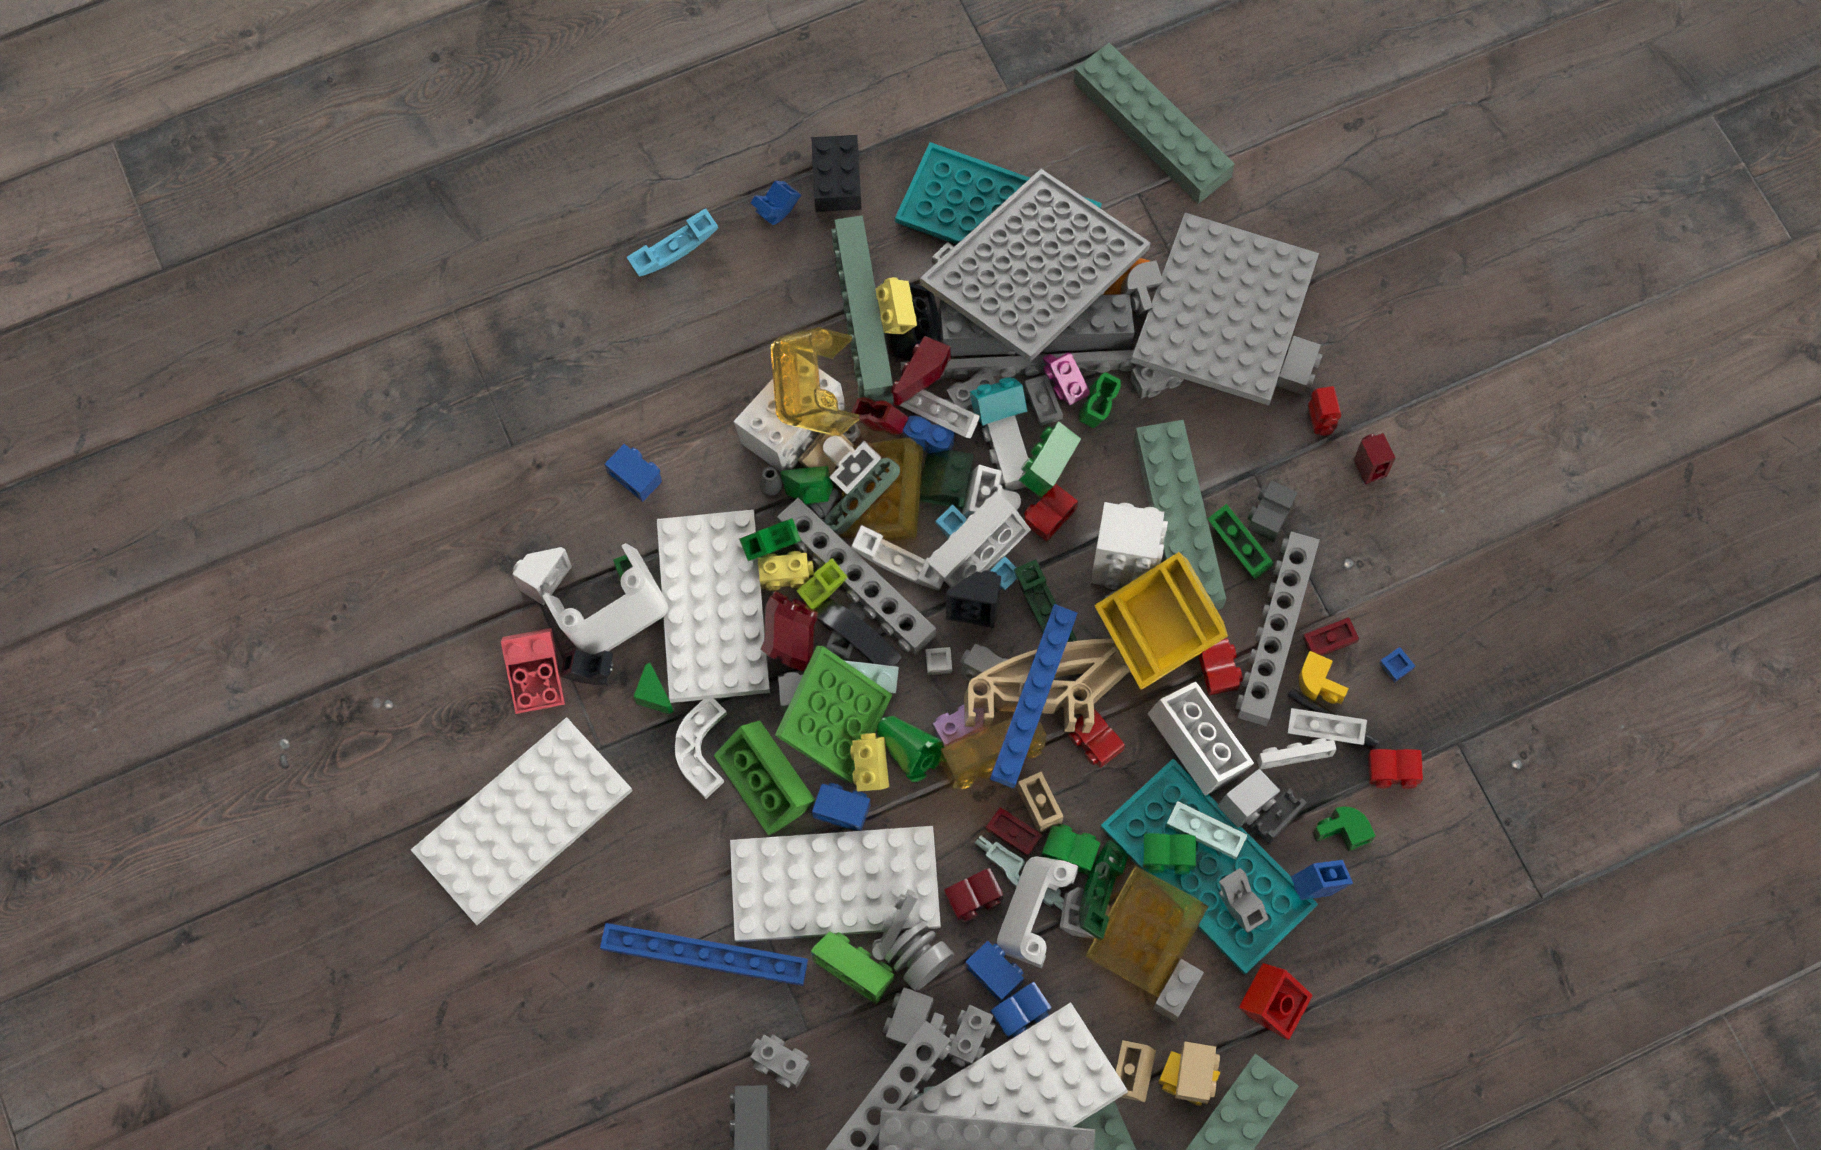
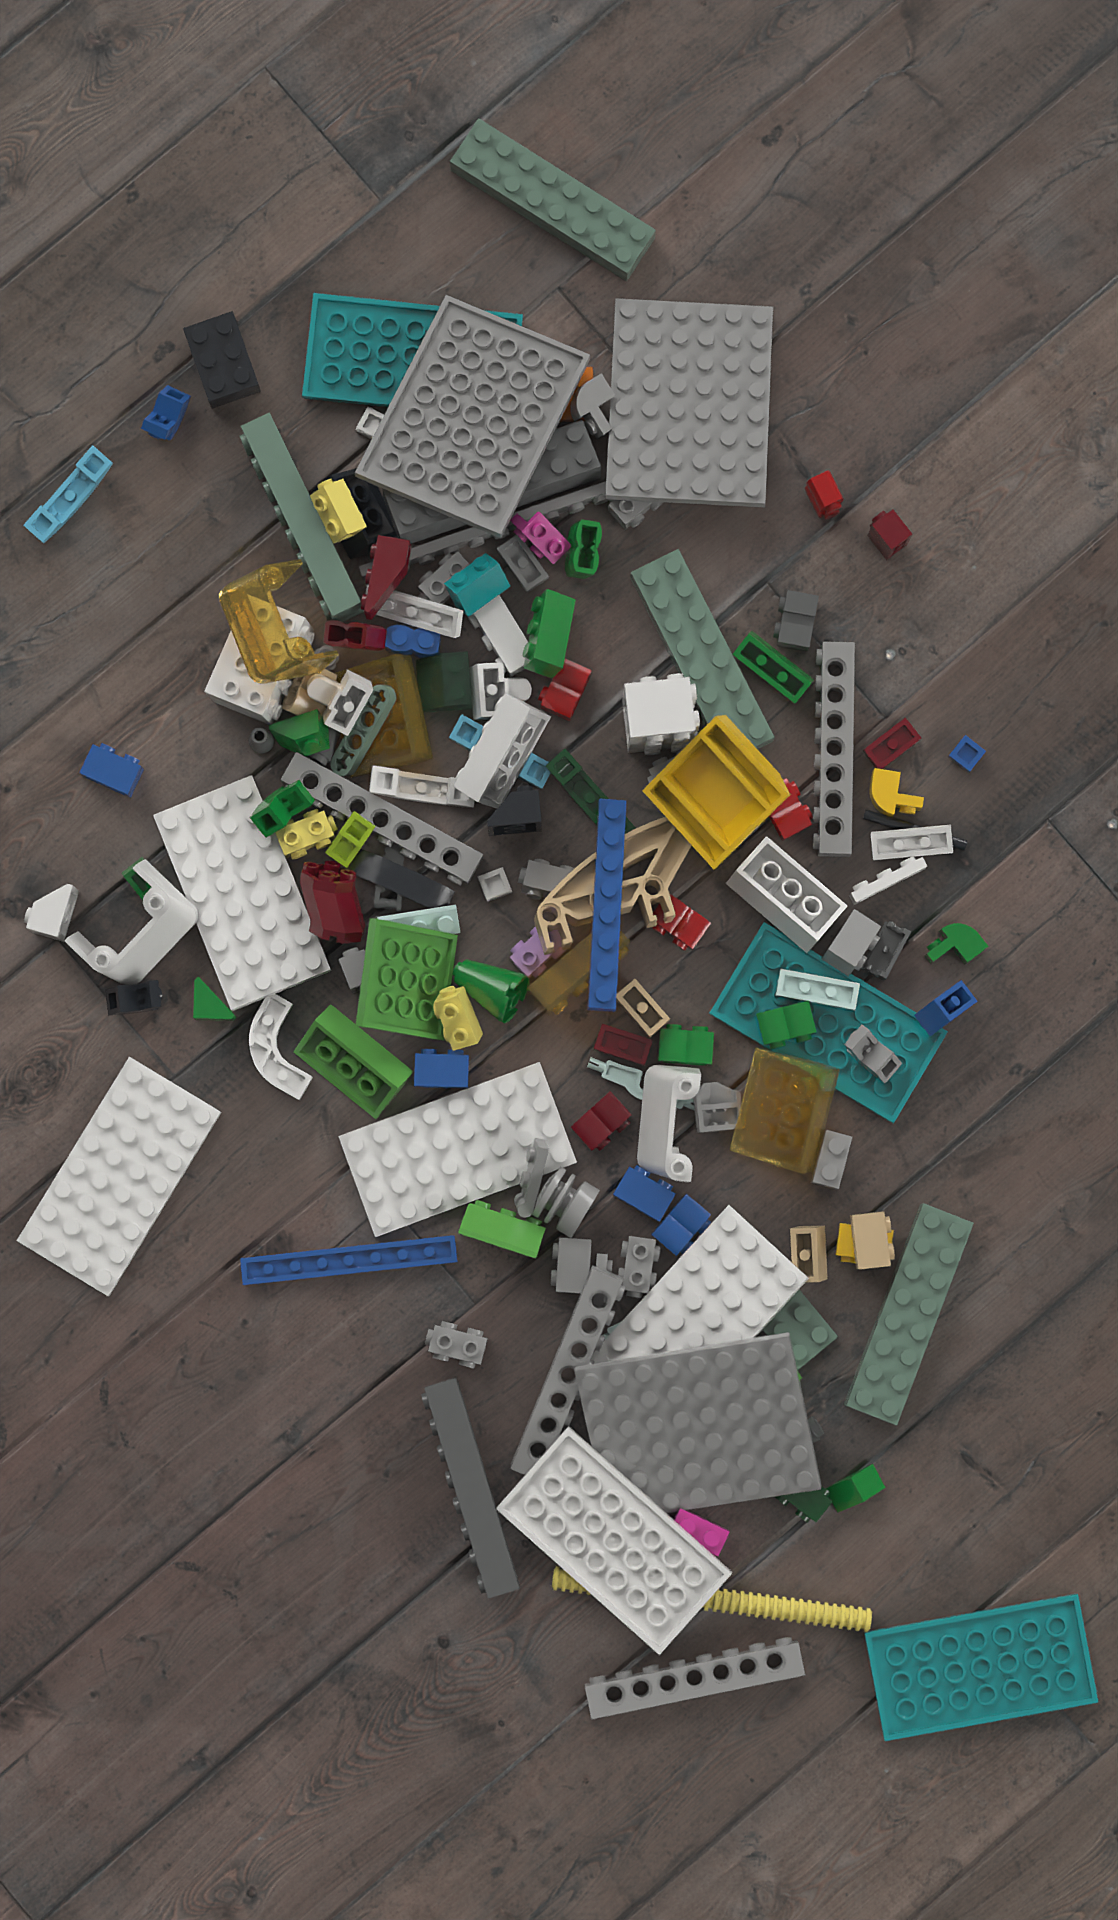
camera: 20 degrees left, 15 degrees up
(533, 670) = (77, 1016): coral slope -> none
(1099, 887) = (725, 1080): dark green slope -> none
(1276, 1000) = (930, 1141): red slope -> none
(1298, 365) = (784, 446): light grey brick -> none
(1395, 767) = (990, 866): red brick -> none

